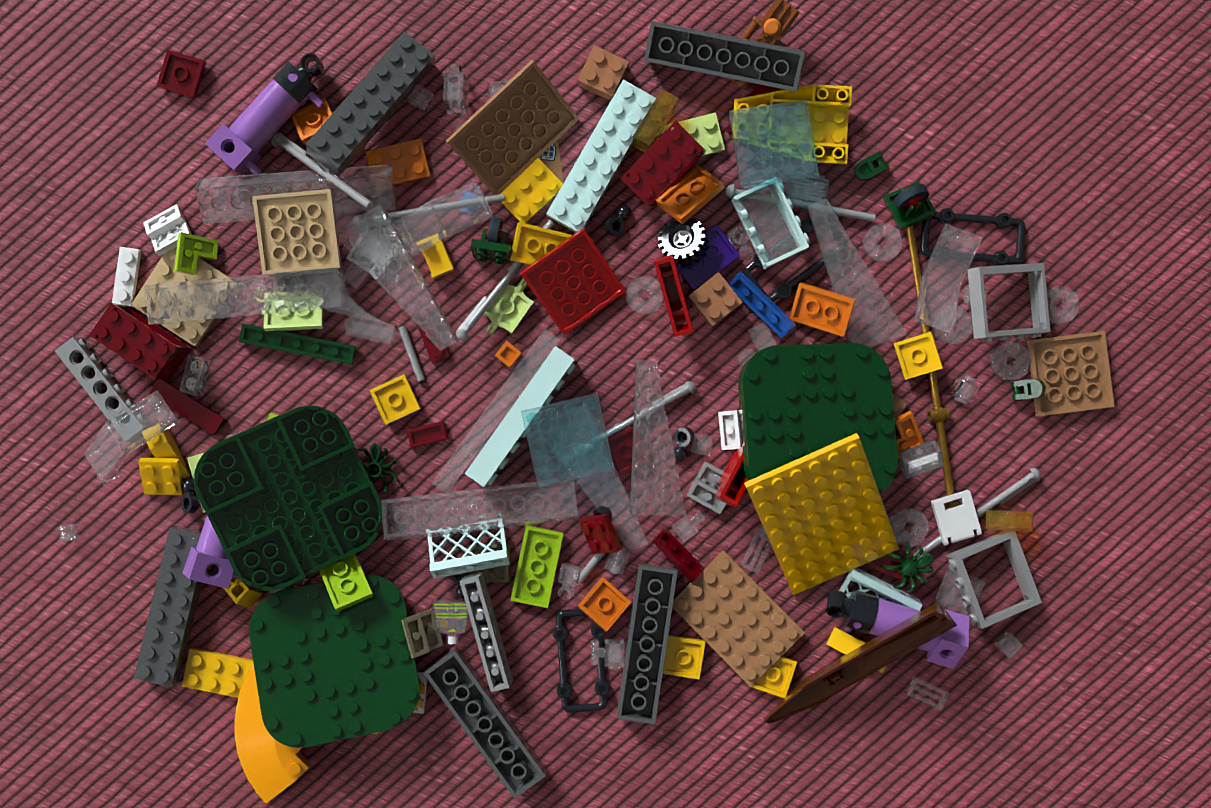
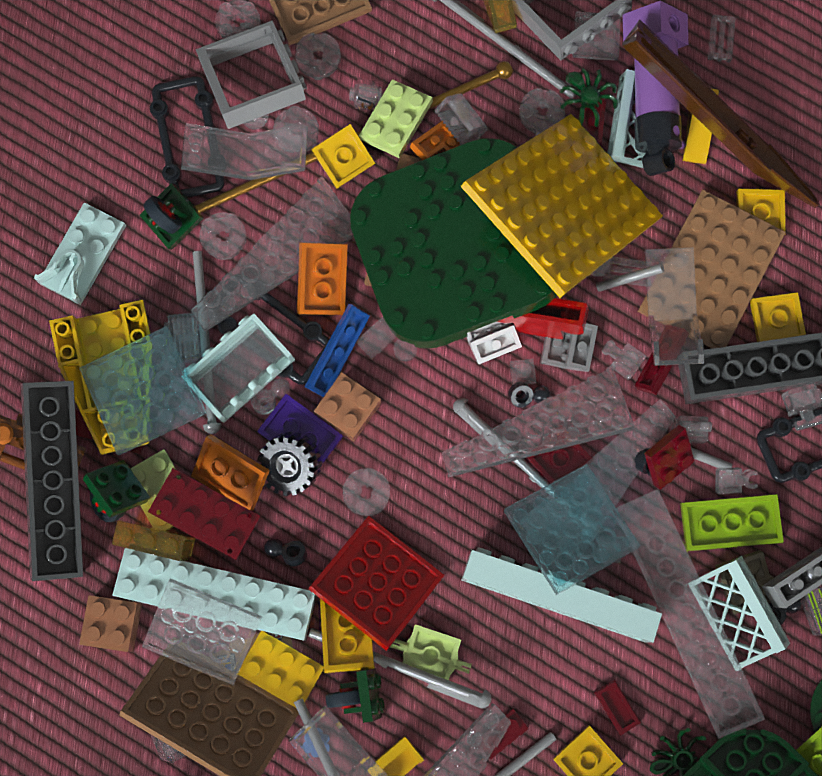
camera: 110 degrees left, 10 degrees down
(495, 411) = (563, 630): clear plate -> none
(508, 354) = (488, 636): orange plate -> none
(575, 138) = (201, 631): none -> clear plate
(604, 604) = (749, 429): orange plate -> none
(673, 295) = (358, 453): red brick -> none
(702, 102) = (114, 491): none -> dark green plate
(715, 576) = (673, 308): none -> clear windscreen
(750, 551) = (630, 277): none -> light grey bar
(865, 170) = (142, 279): dark green plate -> none
(901, 127) = (81, 254): none -> light aqua plate
(937, 407) = (395, 118): none -> yellowish green plate
(958, 521) = (519, 58): white container -> none
(1032, 389) = (342, 20): plate -> none

